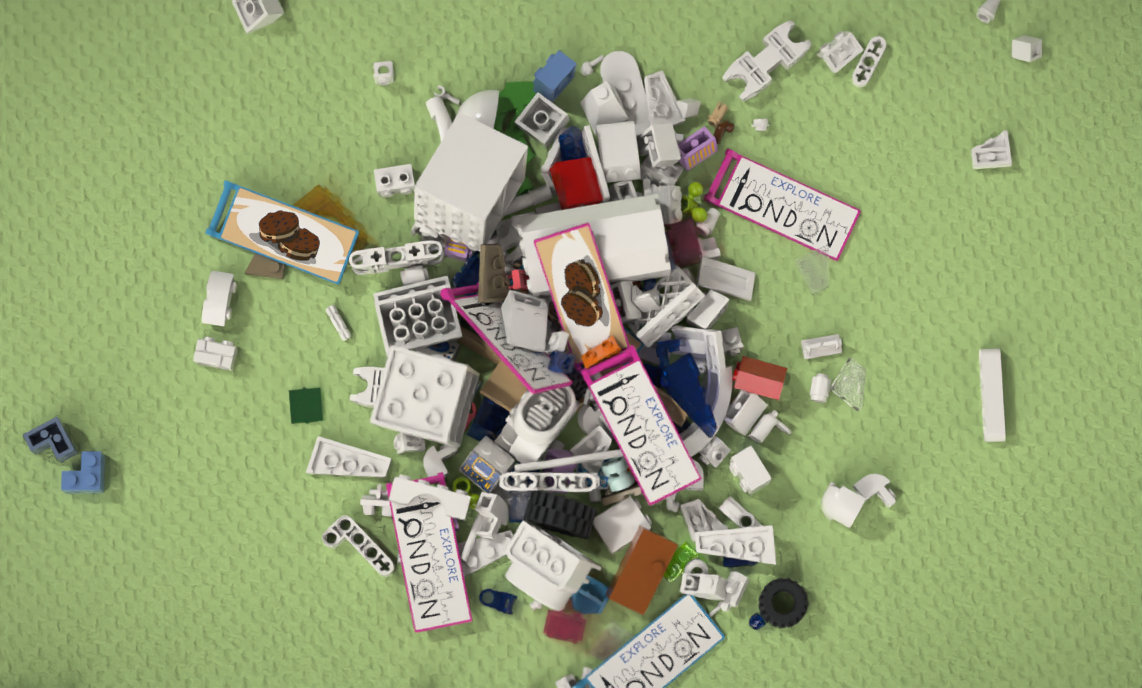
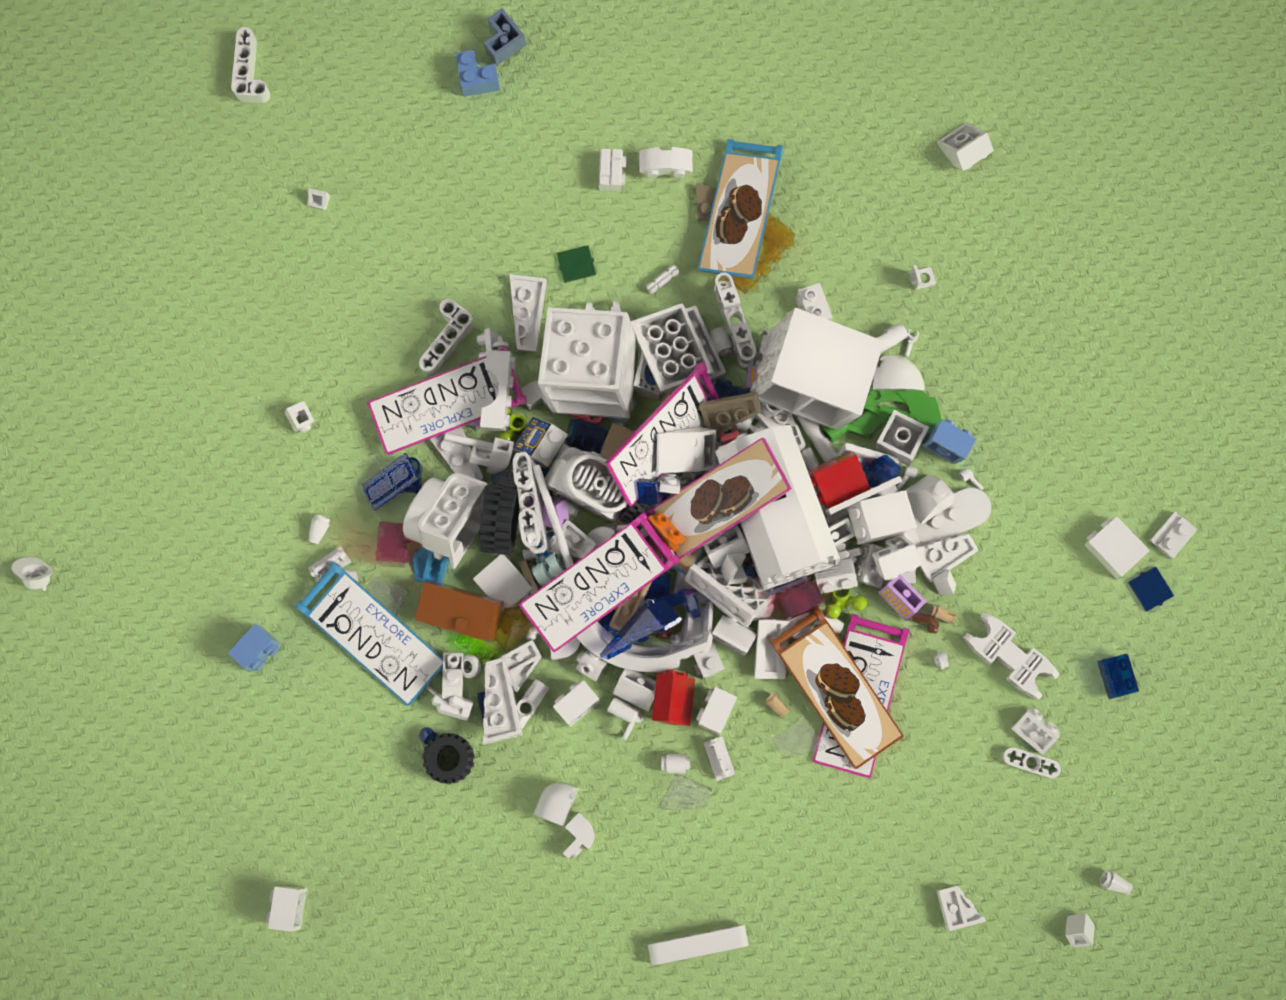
camera: 80 degrees right, 0 degrees up
(187, 657) = (318, 199): none -> white slope
(500, 621) = (390, 482): none -> clear blue piece
(575, 120) = (909, 472): none -> white hand
(664, 521) = (512, 627): none -> clear yellow slope
(774, 224) = (837, 690): none -> flag
(777, 339) = (717, 710): none -> white brick
(779, 284) = (776, 705): none -> tan pin

